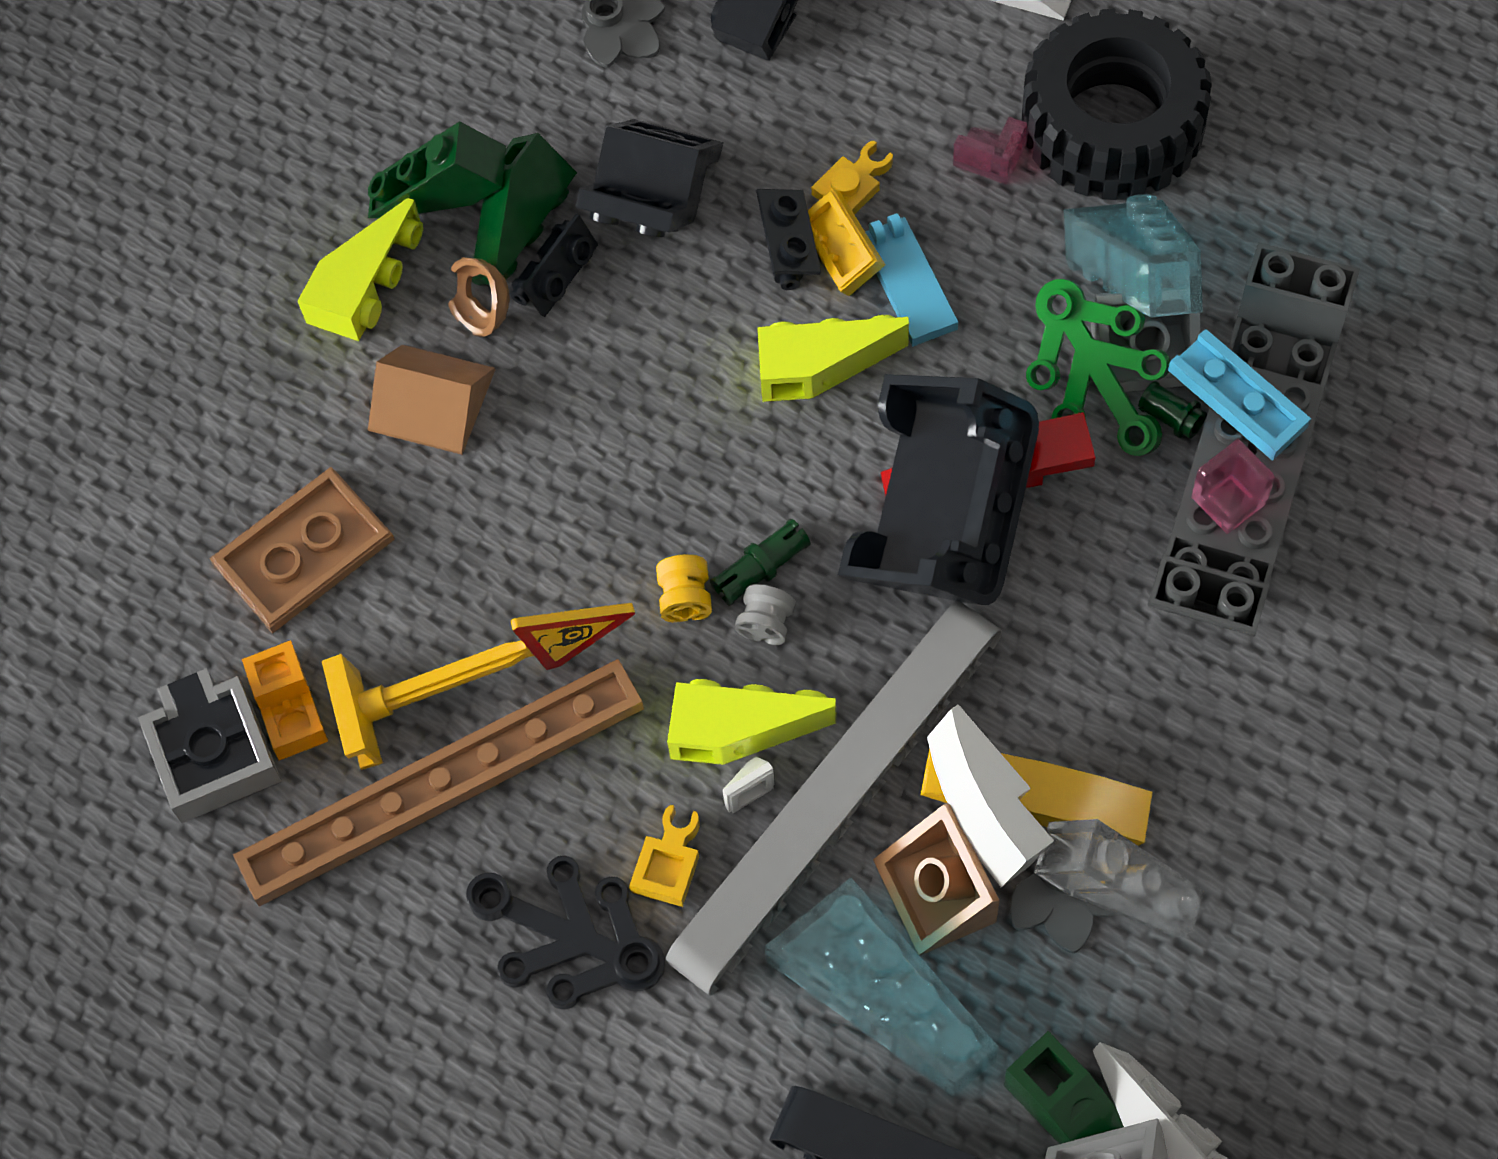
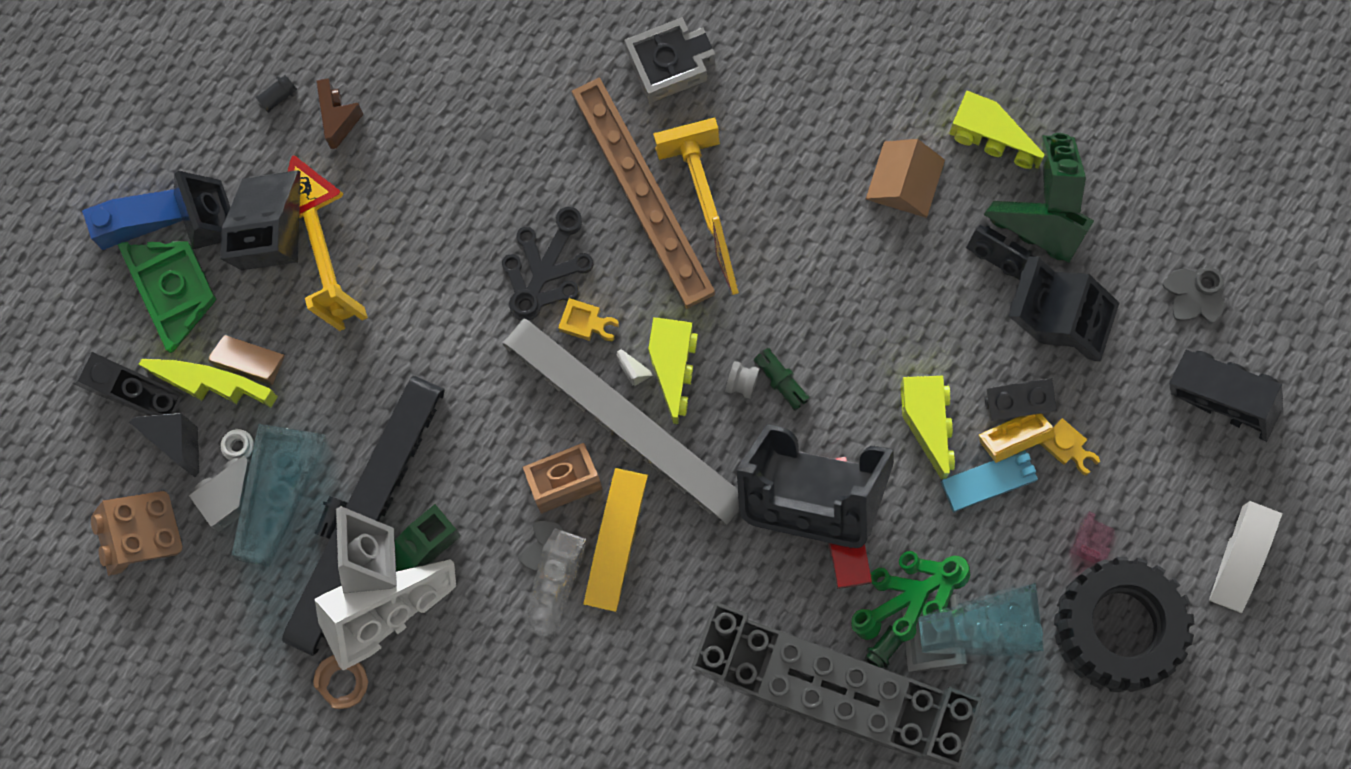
camera: 90 degrees right, 10 degrees up
(284, 700) = (701, 102): light orange slope -> none
(302, 549) = (800, 107): medium nougat tile -> none
(465, 305) = (974, 208): medium nougat piece -> none
(683, 588) = (762, 331): yellow wheel -> none
(875, 979) = (497, 441): clear light blue wedge -> none
(986, 797) = (598, 498): white slope -> none
(1232, 486) = (802, 667): clear pink panel -> none
(1239, 394) = (876, 681): medium azure hinge -> none

